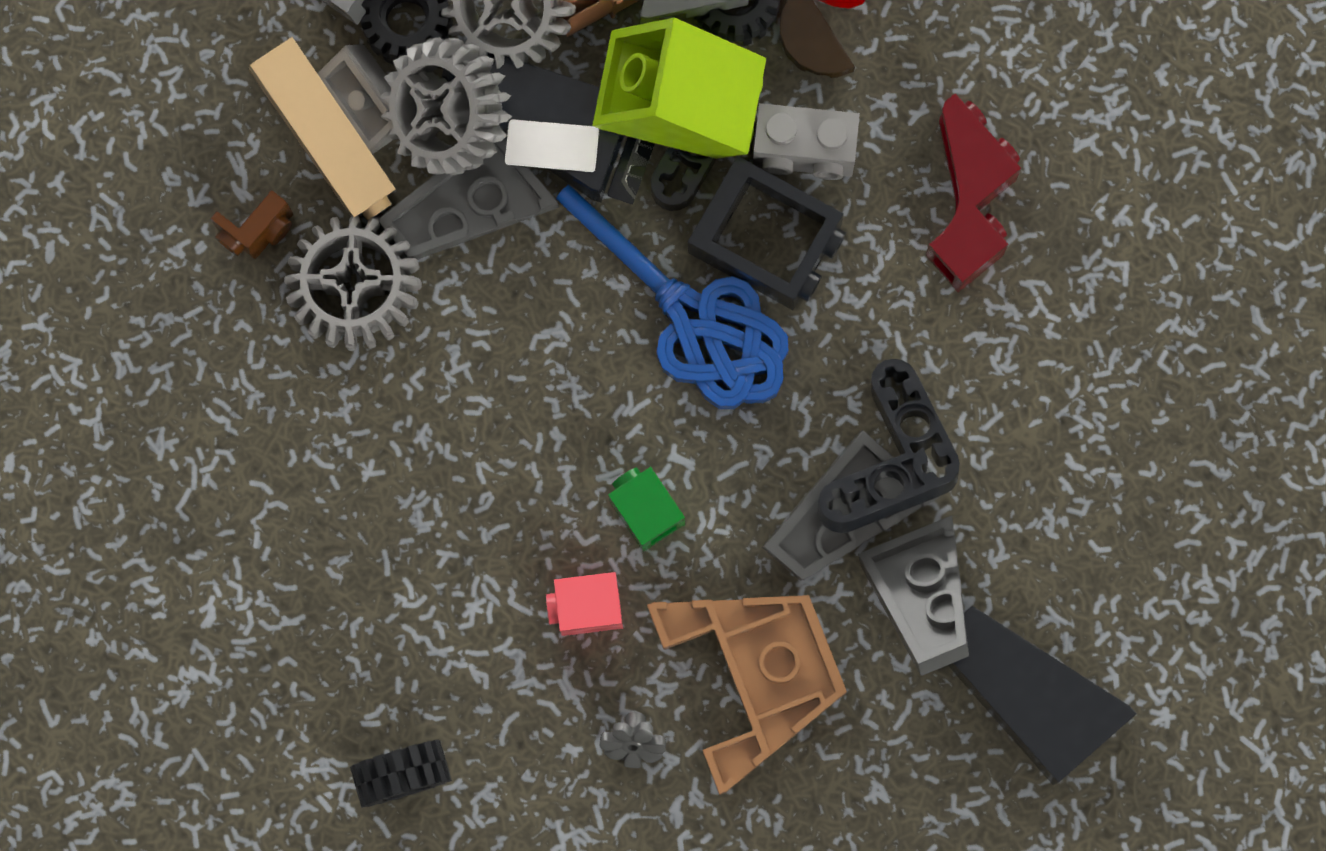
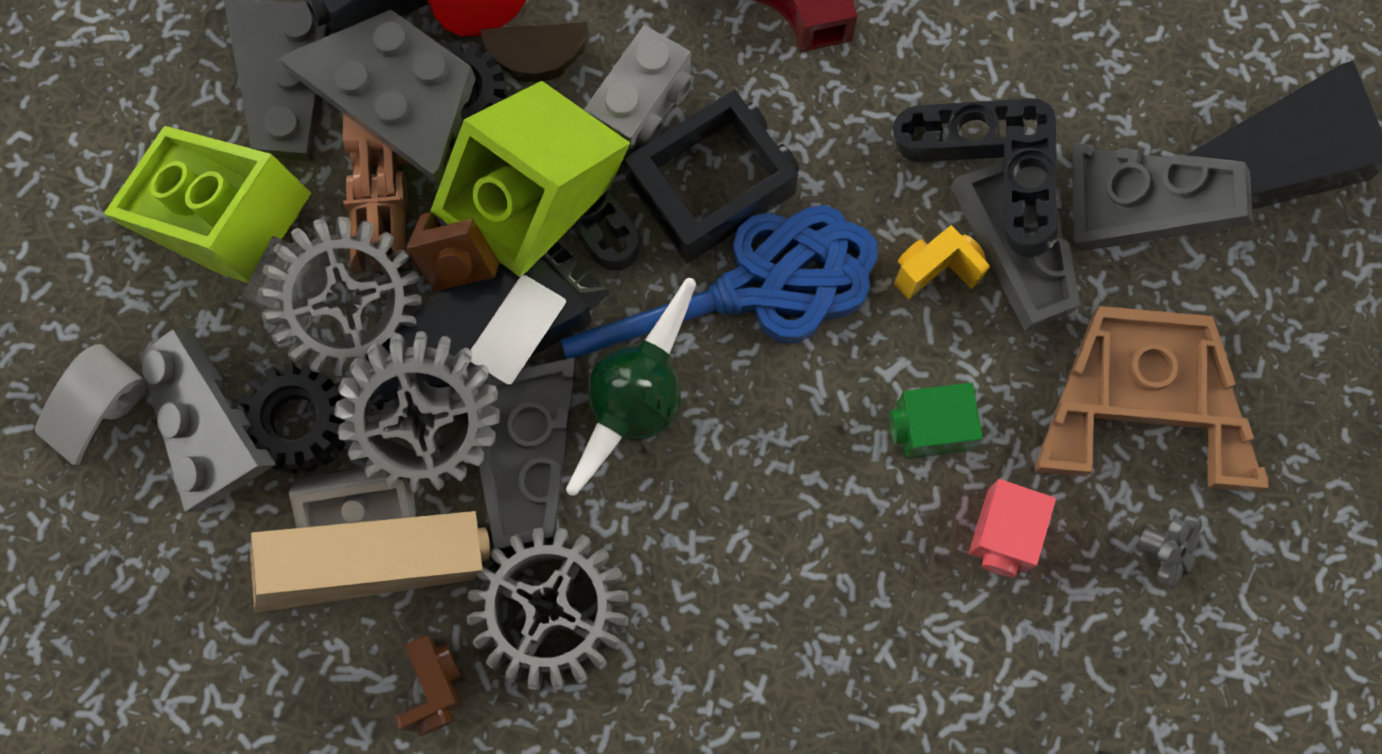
camera: 70 degrees left, 5 degrees down
(551, 261) = (634, 390): none -> dark green helmet
(581, 62) = (451, 252): none -> reddish brown bracket
(779, 440) = (926, 261): none -> yellow bracket

